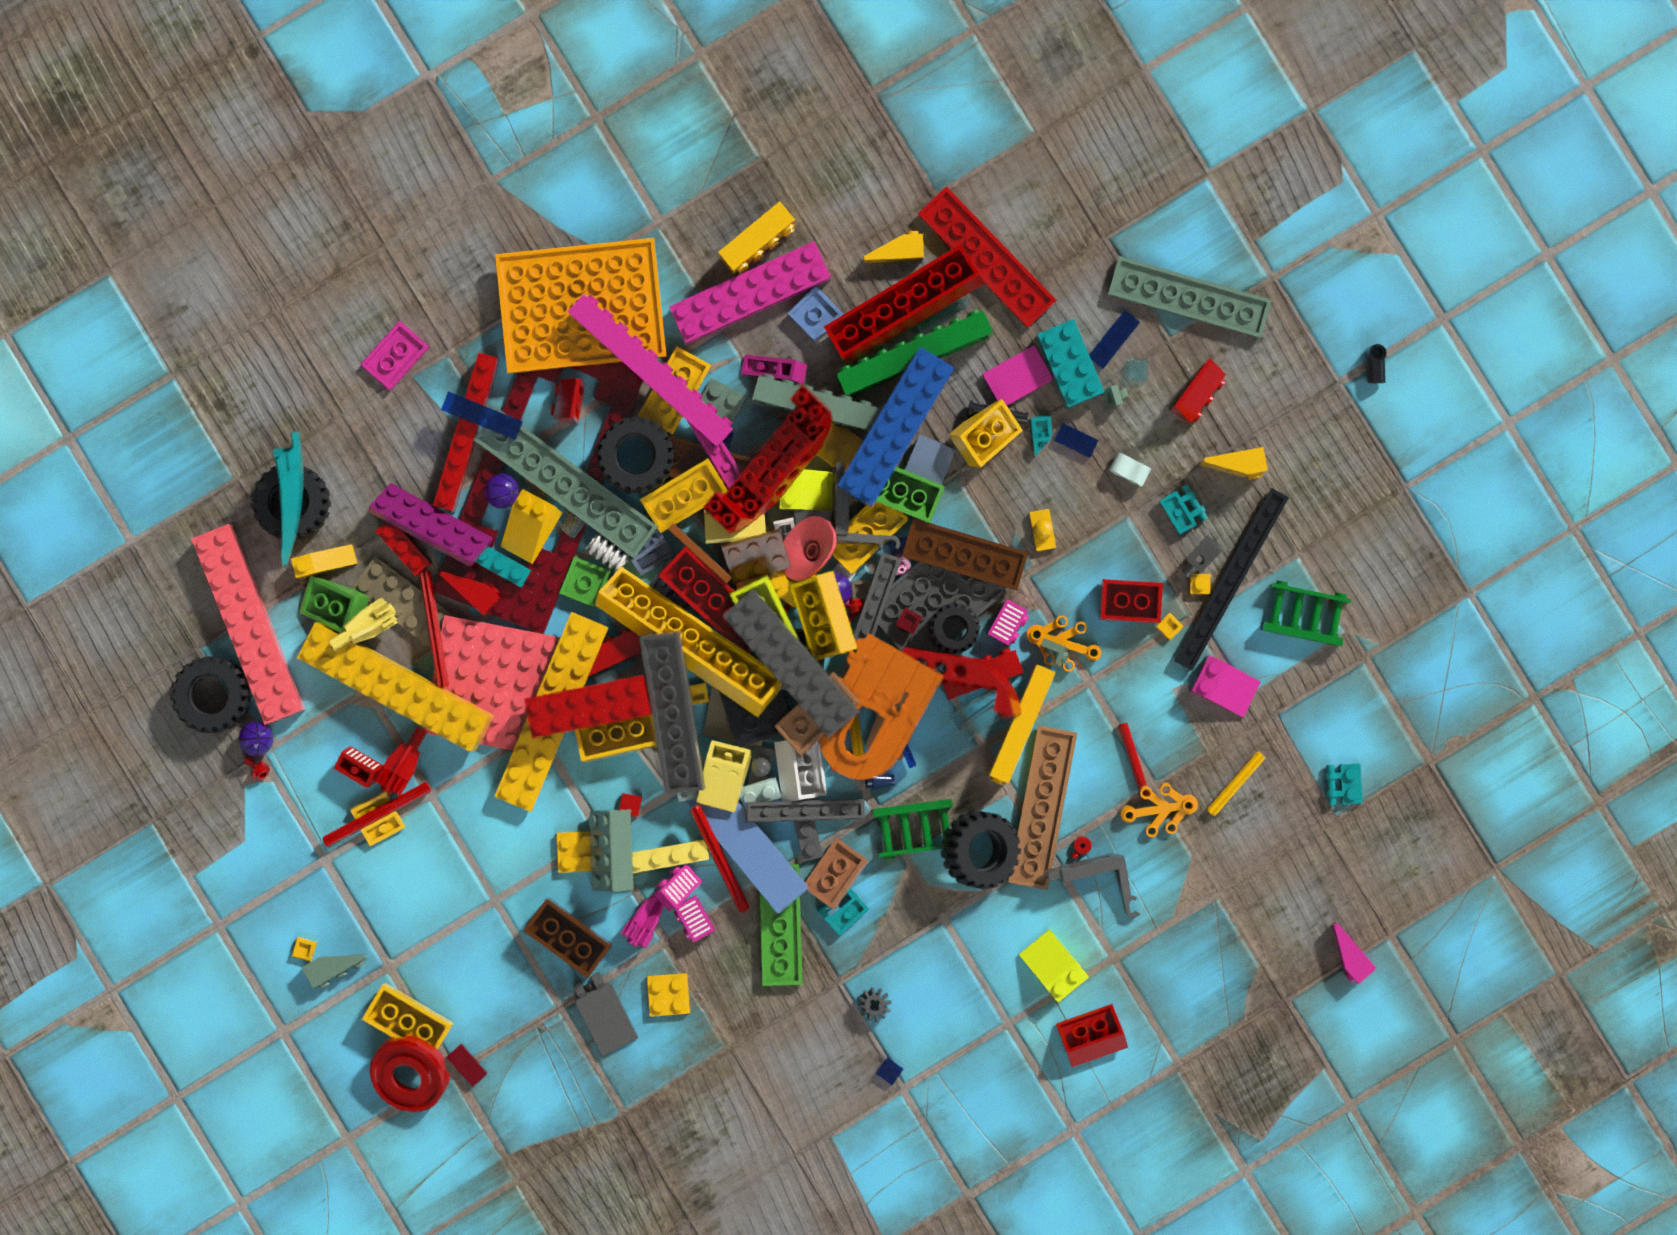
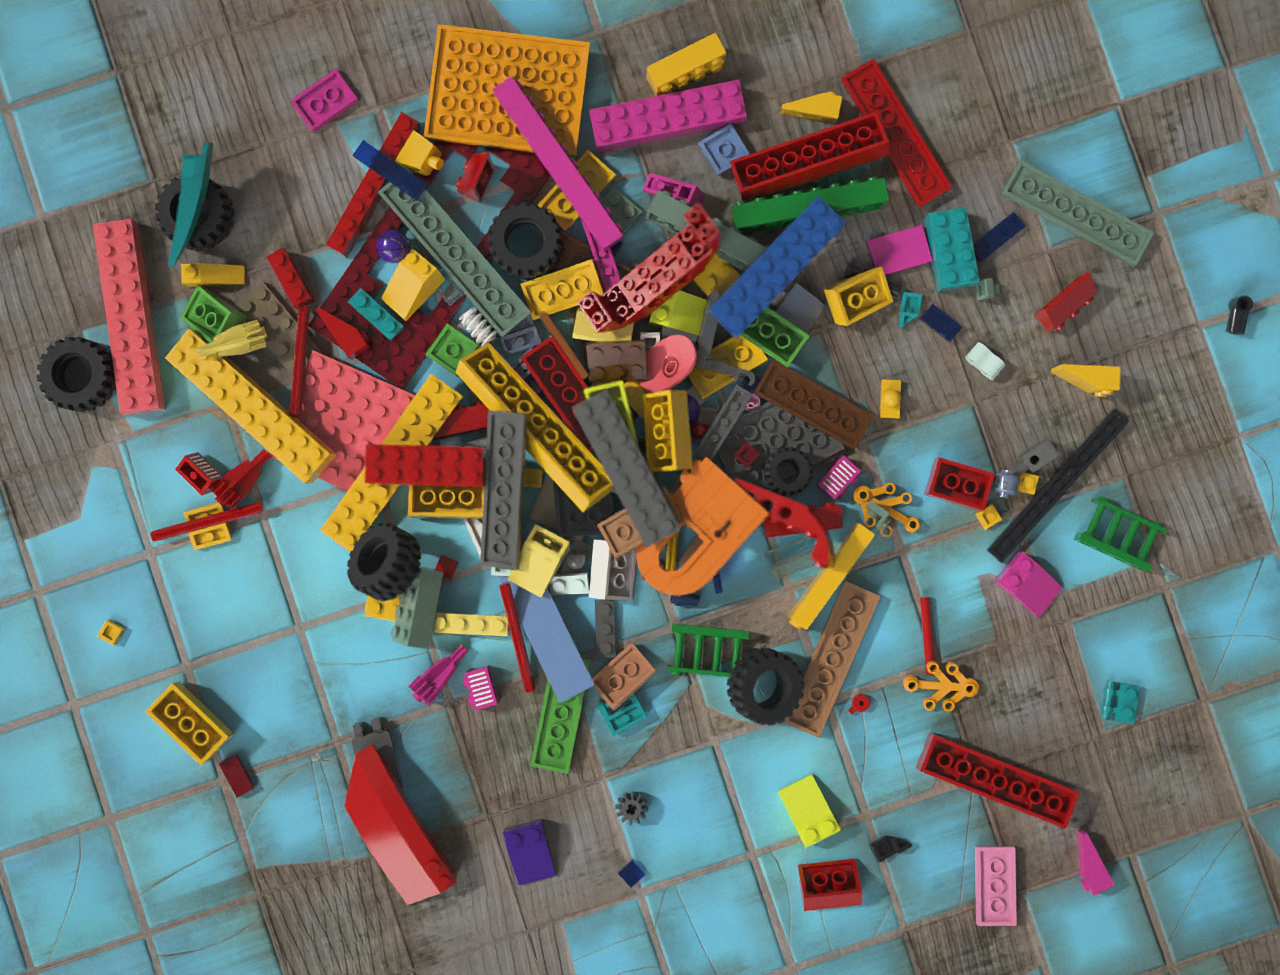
camera: 20 degrees right, 0 degrees up
(256, 738) = (110, 425): dark purple piece -> none
(260, 770) = (108, 455): red plate -> none
(327, 967) = (127, 654): sand green slope -> none
(416, 1054) = (191, 761): red piece -> none
(430, 524) = (318, 262): magenta plate -> none
(507, 392) = (419, 155): none -> yellow torso
(568, 937) = (357, 678): reddish brown brick -> none
(585, 817) = (396, 573): none -> black tyre
(640, 1081) = (395, 830): none -> red slope
(668, 994) = (440, 753): yellow plate -> none
(677, 886) = (471, 655): dark pink brick -> none
(782, 1073) = (529, 851): none -> dark purple slope
(805, 810) = (607, 610): dark grey tile -> none
(1095, 866) = (869, 726): dark grey hinge -> none
(1137, 370) = (1012, 270): clear light blue tile -> none
(1142, 984) = (888, 846): none -> black slope
(1178, 512) = (1021, 410): teal plate -> none
(1178, 589) = (1006, 483): none -> sand blue head
(1235, 783) = (1018, 678): yellow axle -> none
(1236, 891) = (997, 780): none -> red brick
(1259, 997) = (995, 885): none -> bright pink plate

